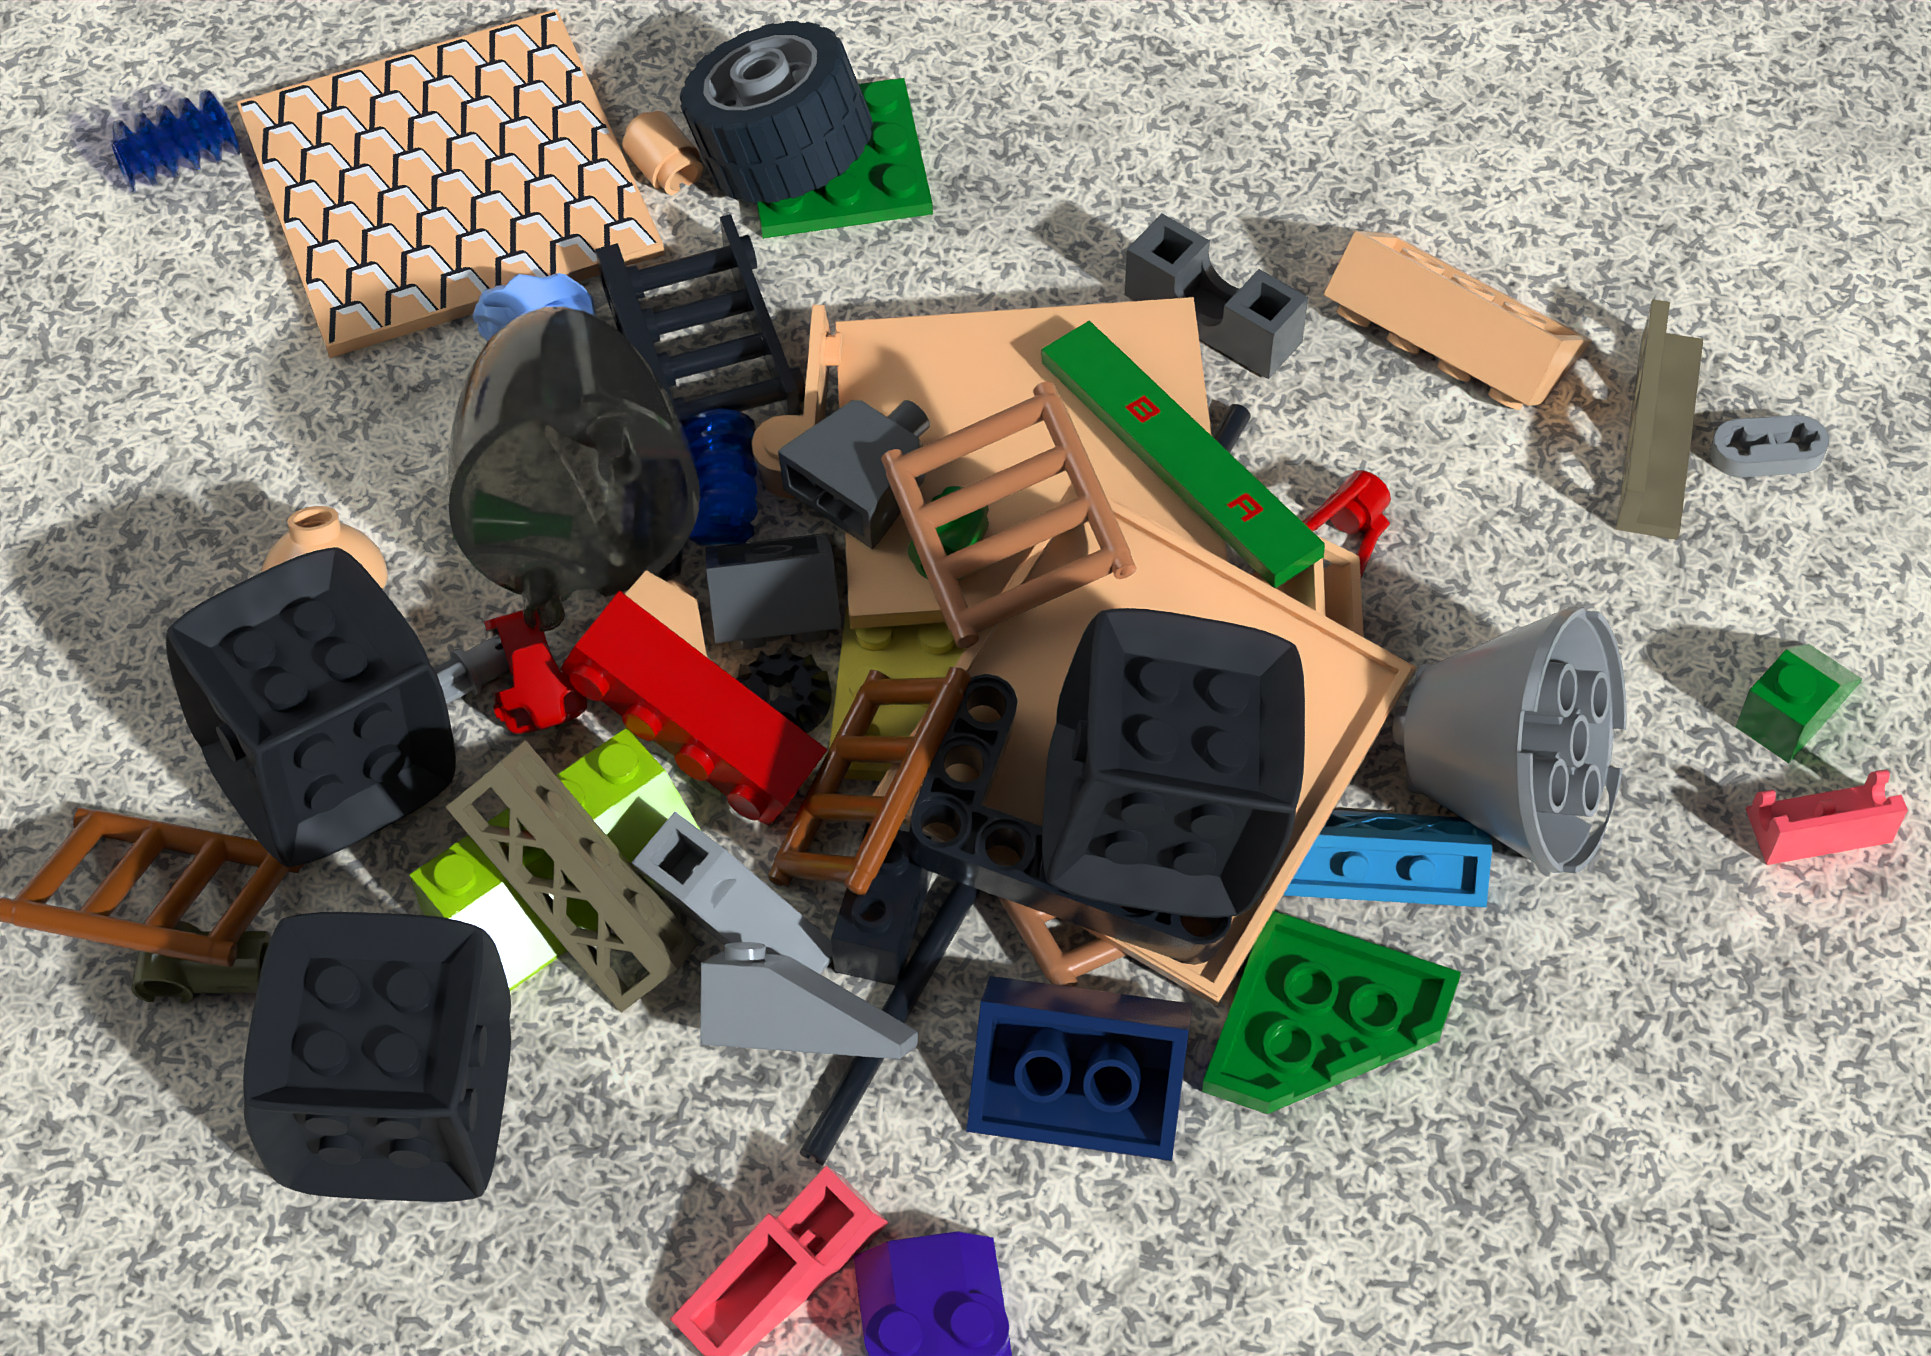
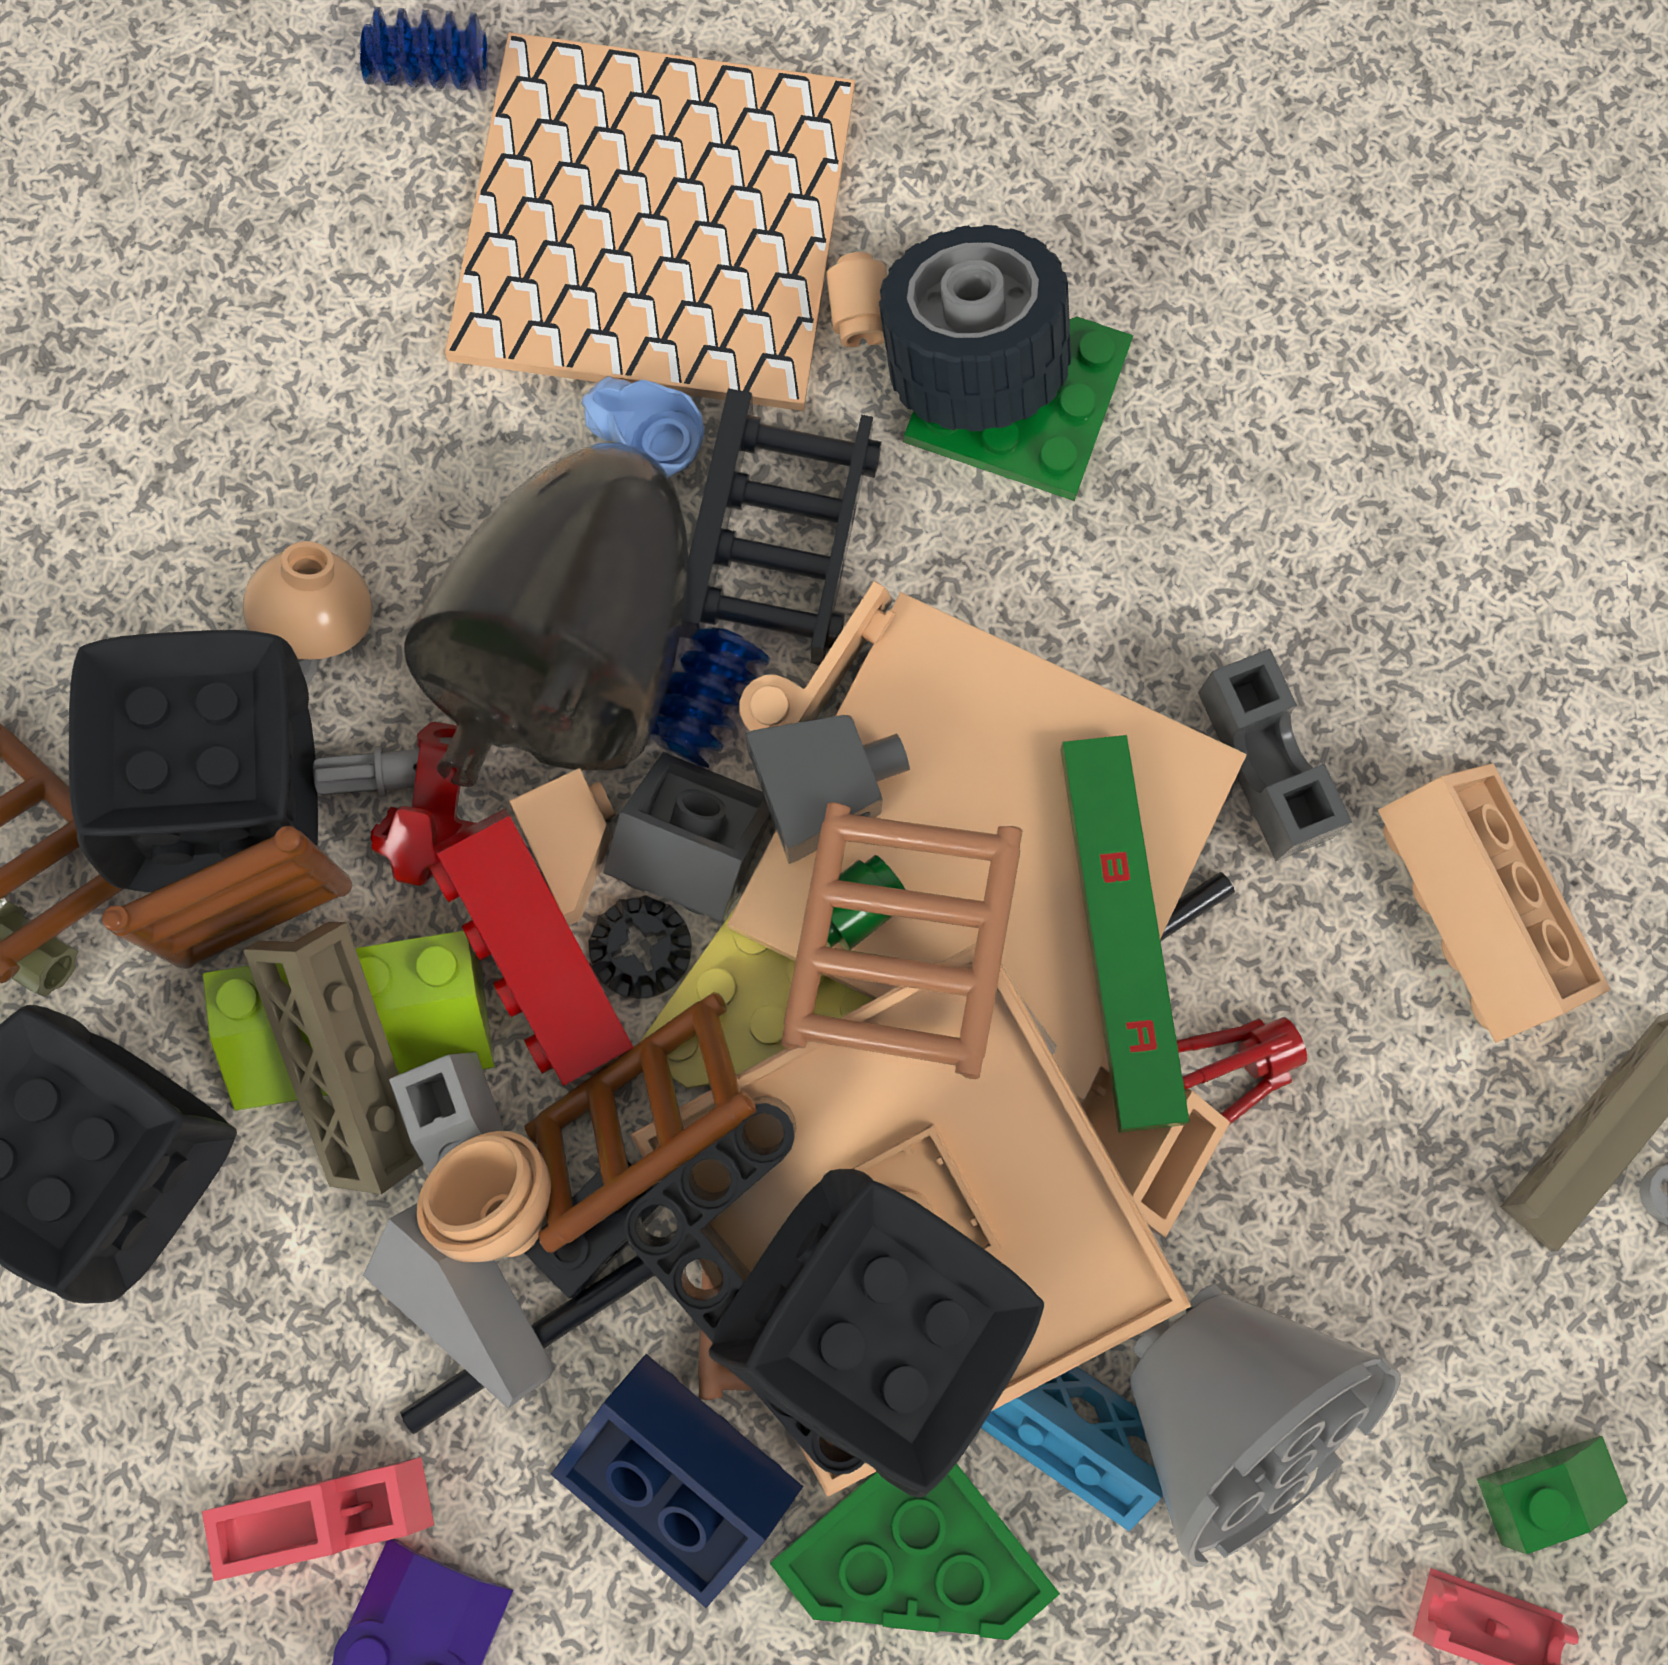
camera: 25 degrees right, 20 degrees up
(353, 823) = (231, 900): none -> dark orange bar
(781, 893) = (485, 1198): none -> light nougat piece

